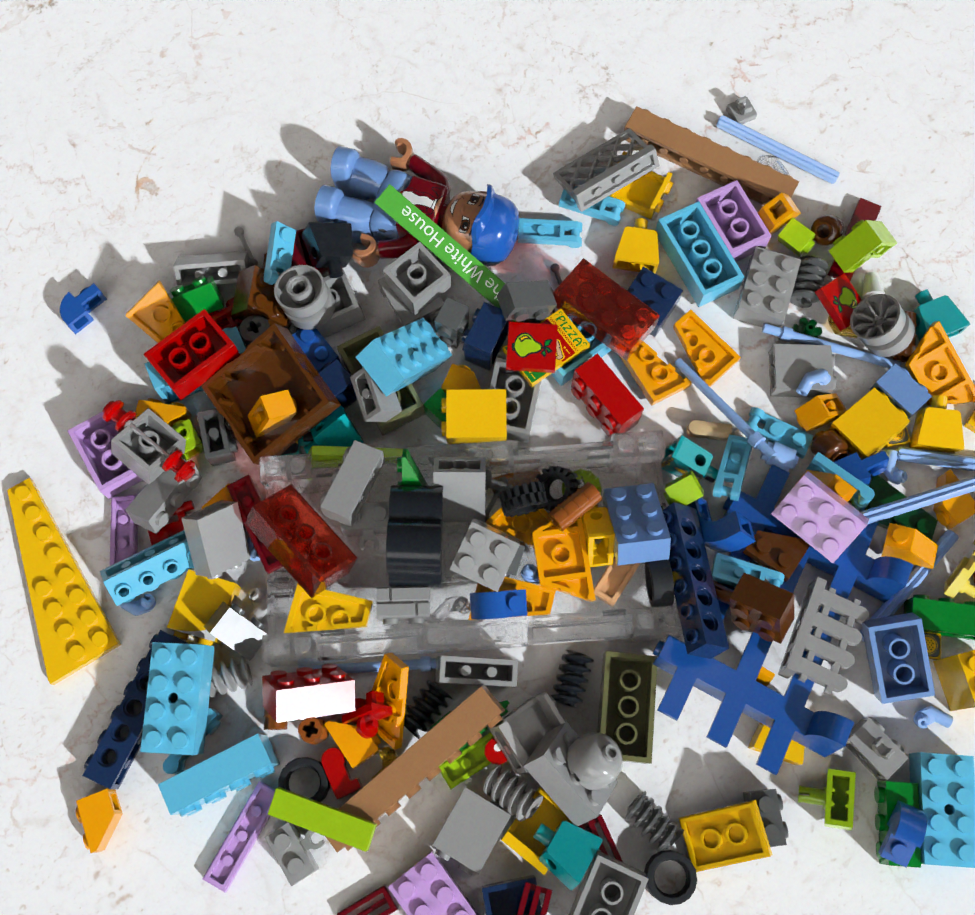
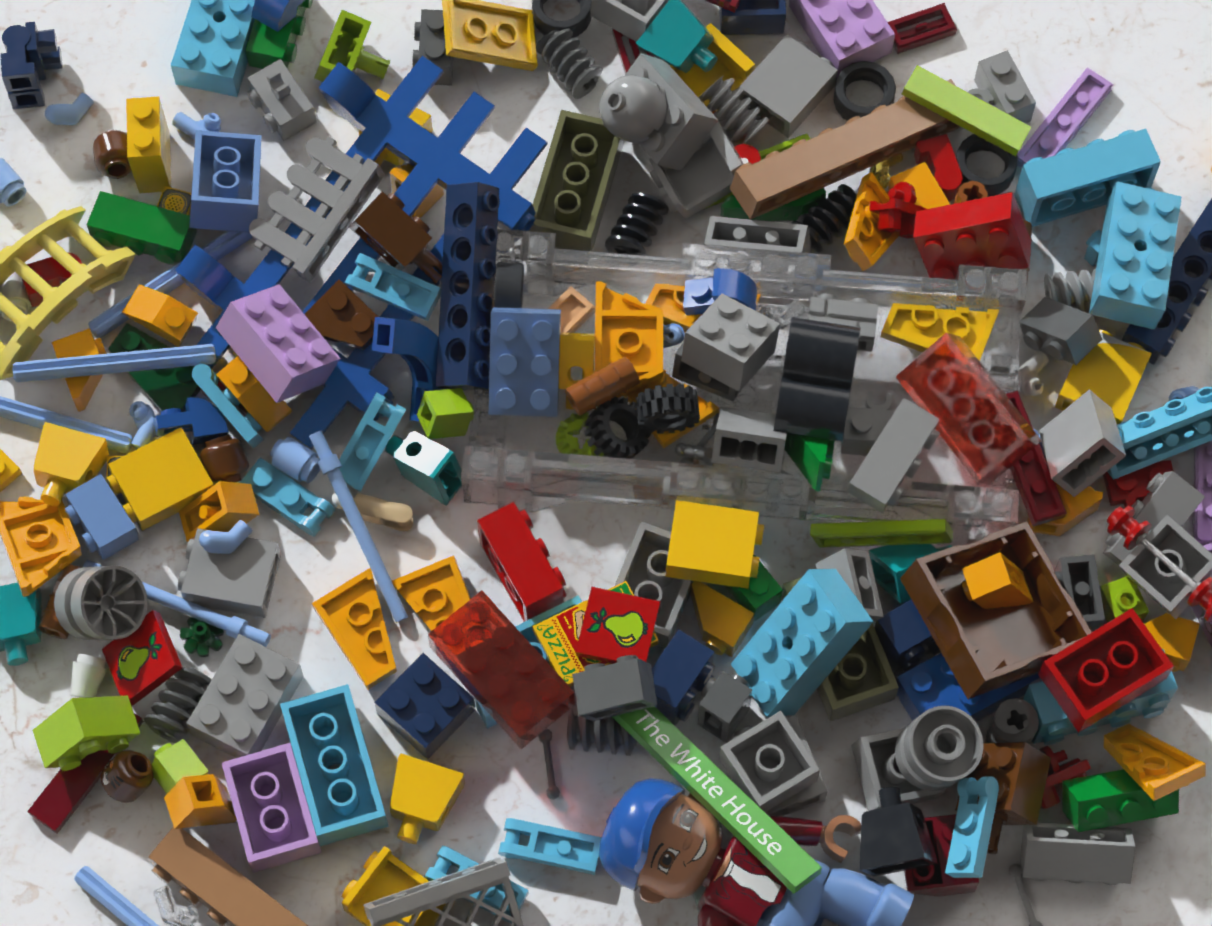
camera: 170 degrees left, 5 degrees down
(388, 840) = (862, 71): none -> black tyre

